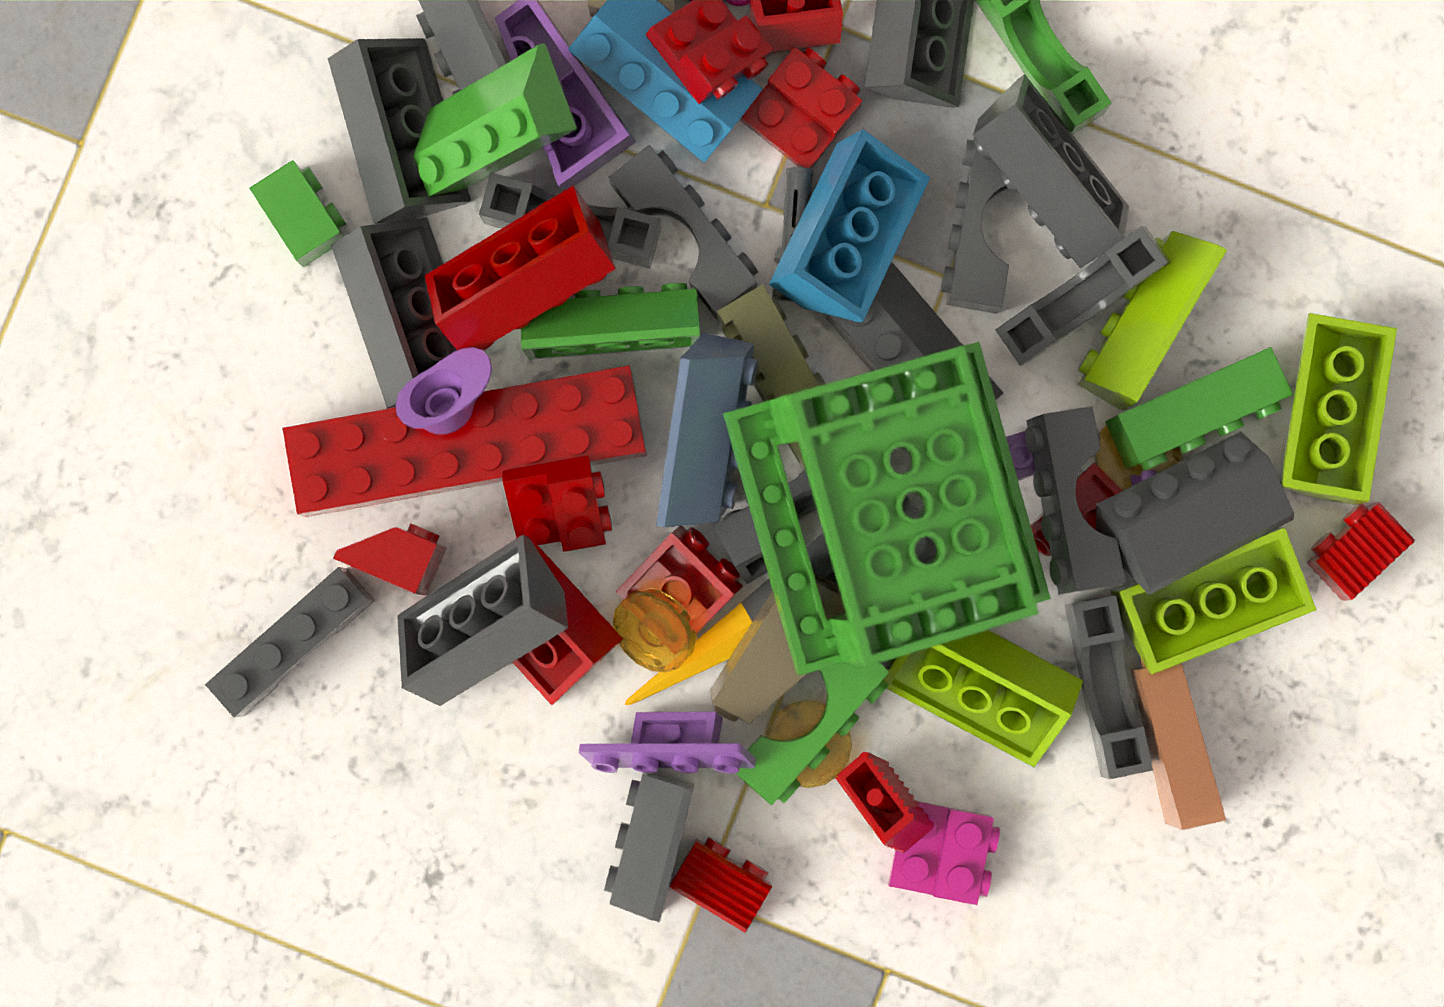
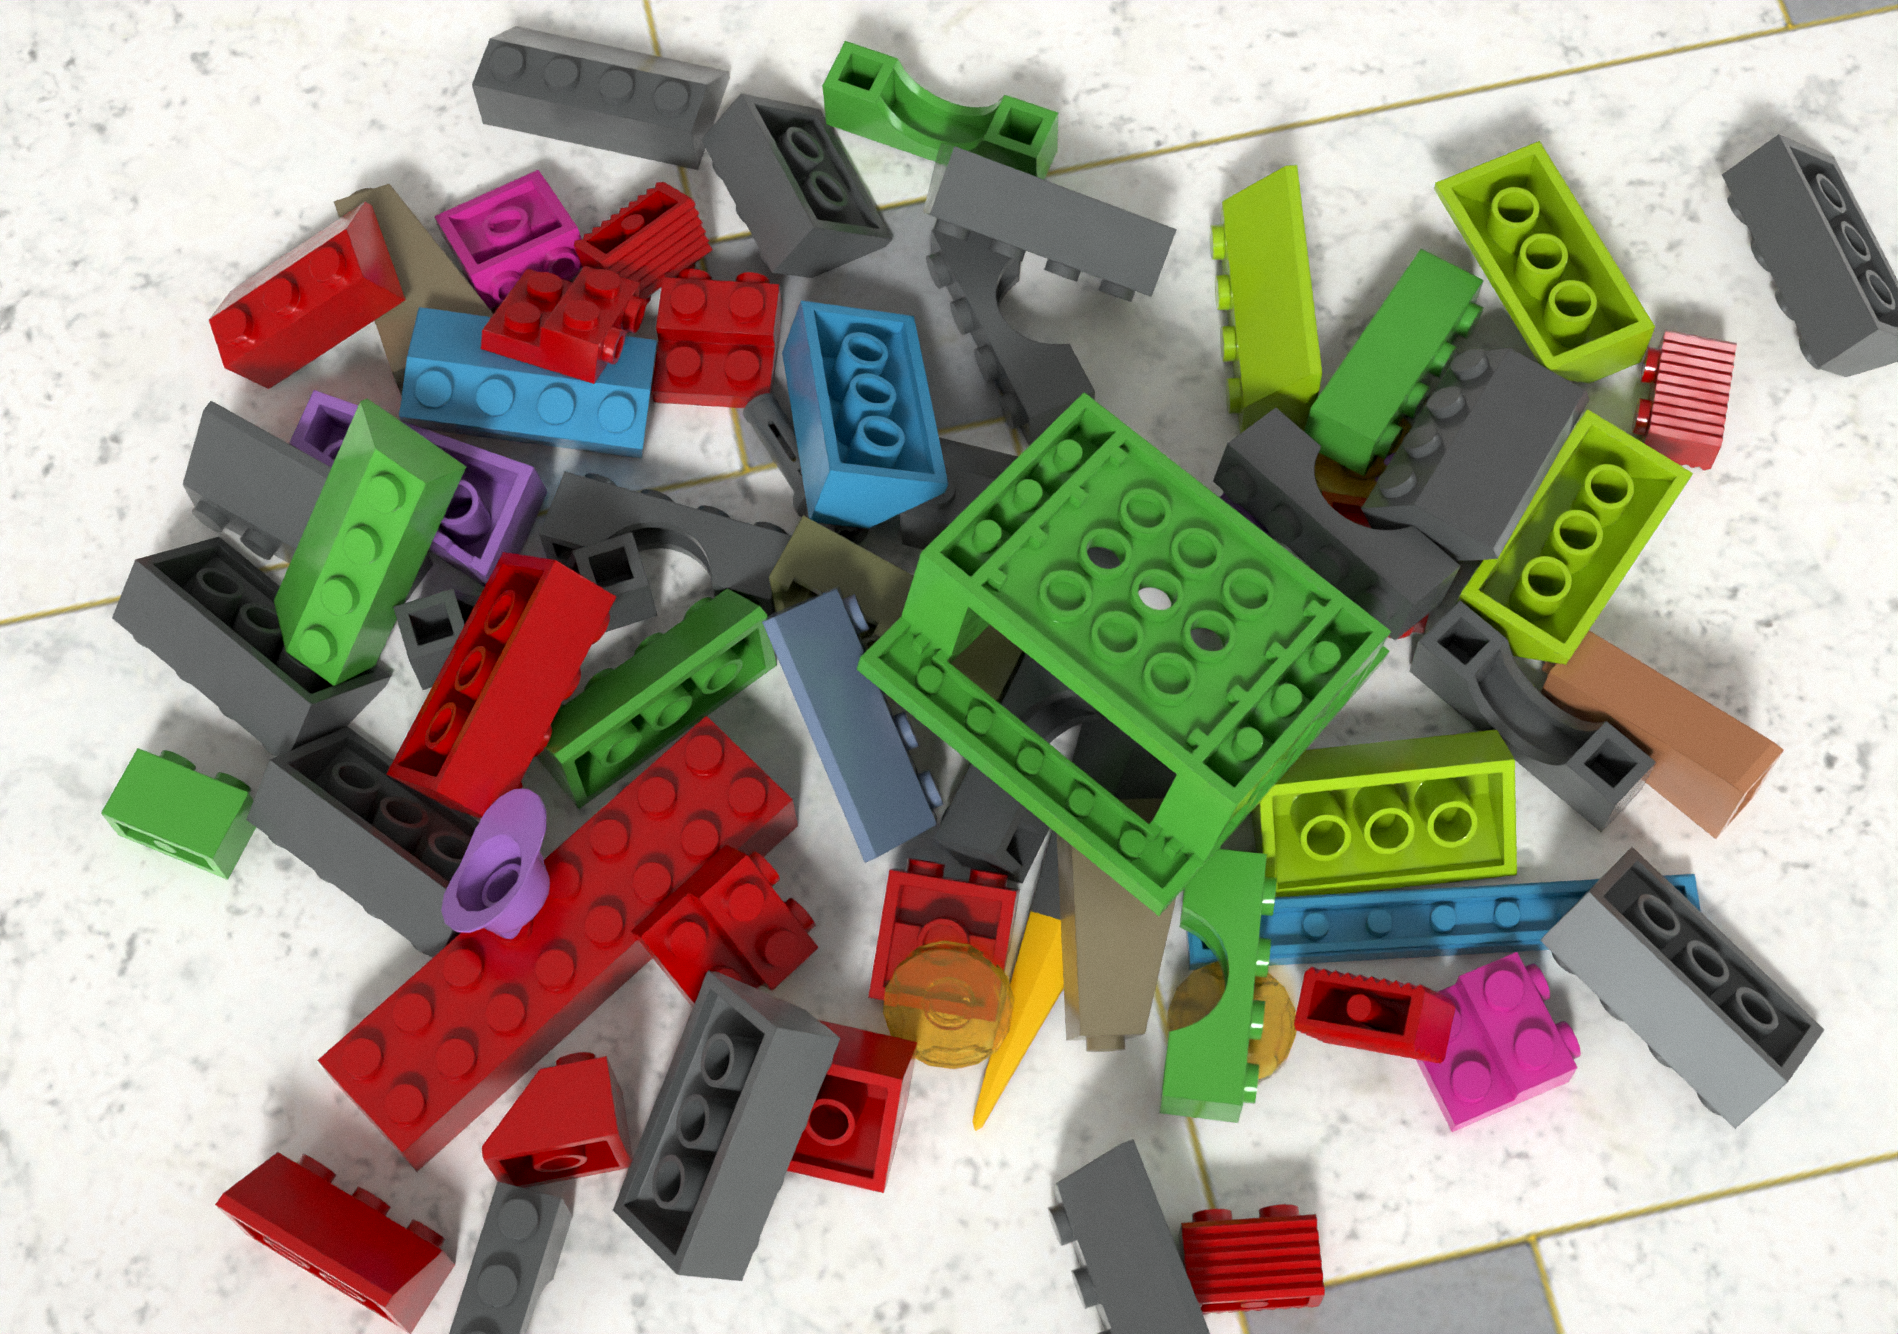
camera: 30 degrees left, 20 degrees down
(236, 535) = (340, 1237): none -> red slope
(671, 741) = (1064, 1124): medium lavender bracket -> none
(991, 778) = (1417, 922): none -> dark azure tile
(1072, 901) = (1683, 988): none -> slope
(1083, 296) = (1185, 302): dark grey arch -> none

